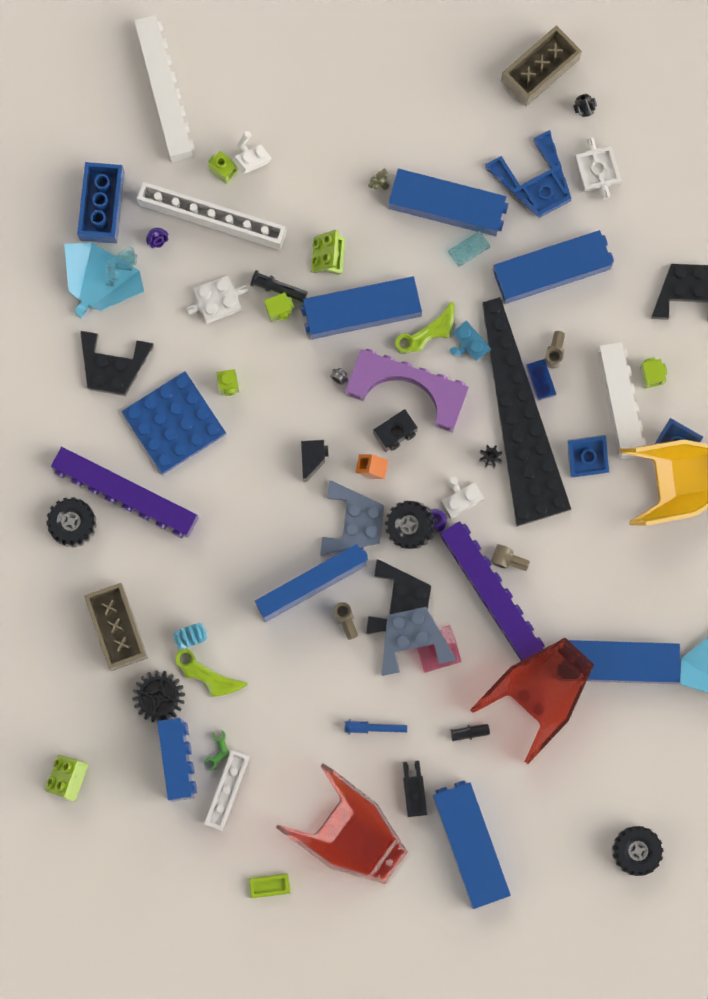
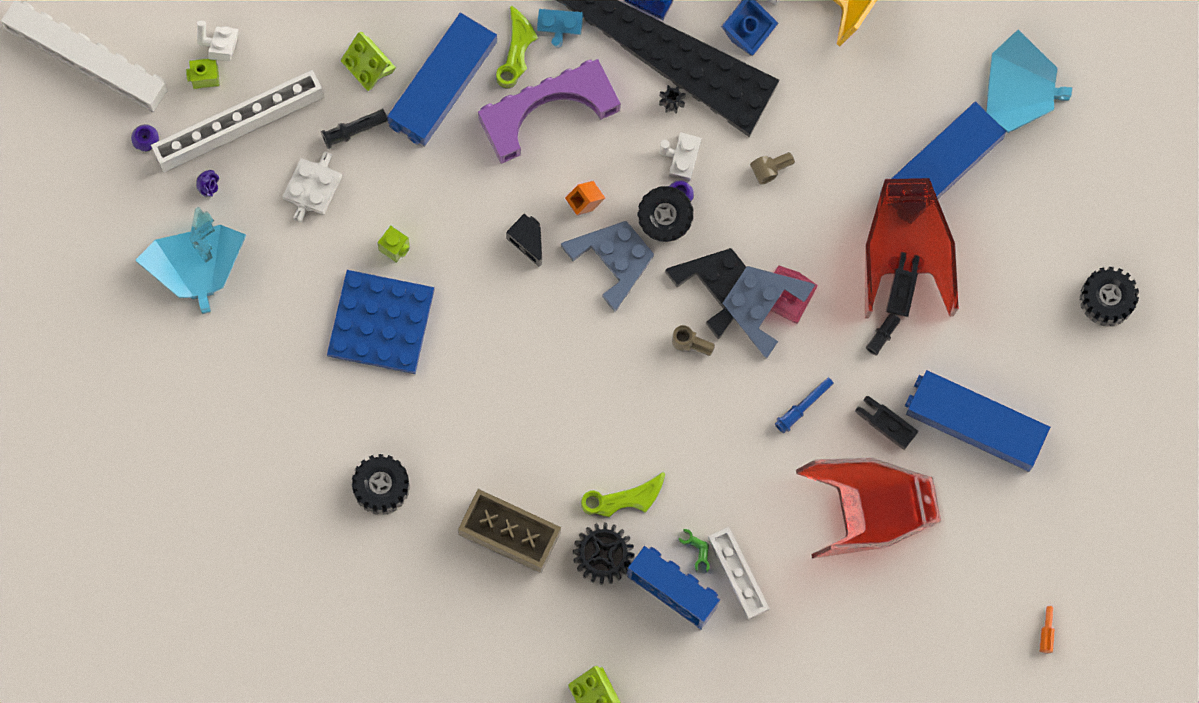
camera: 50 degrees left, 5 degrees down
(101, 202) = (130, 198): blue brick -> none
(109, 372) = (282, 332): black wing -> none
(124, 492) = (400, 416): dark purple brick -> none
(155, 174) = (144, 144): none -> dark purple plate
(190, 636) = (579, 477): medium azure gear -> none
(269, 885) = (851, 615): lime tile -> none
(279, 307) = (372, 143): lime brick -> none
(312, 582) = (634, 337): blue brick -> none
(339, 376) = (480, 152): flat silver plate -> none
(401, 421) = (574, 139): black brick -> none
(490, 591) = (784, 205): dark purple brick -> none
(511, 715) = (902, 287): none -> black hinge

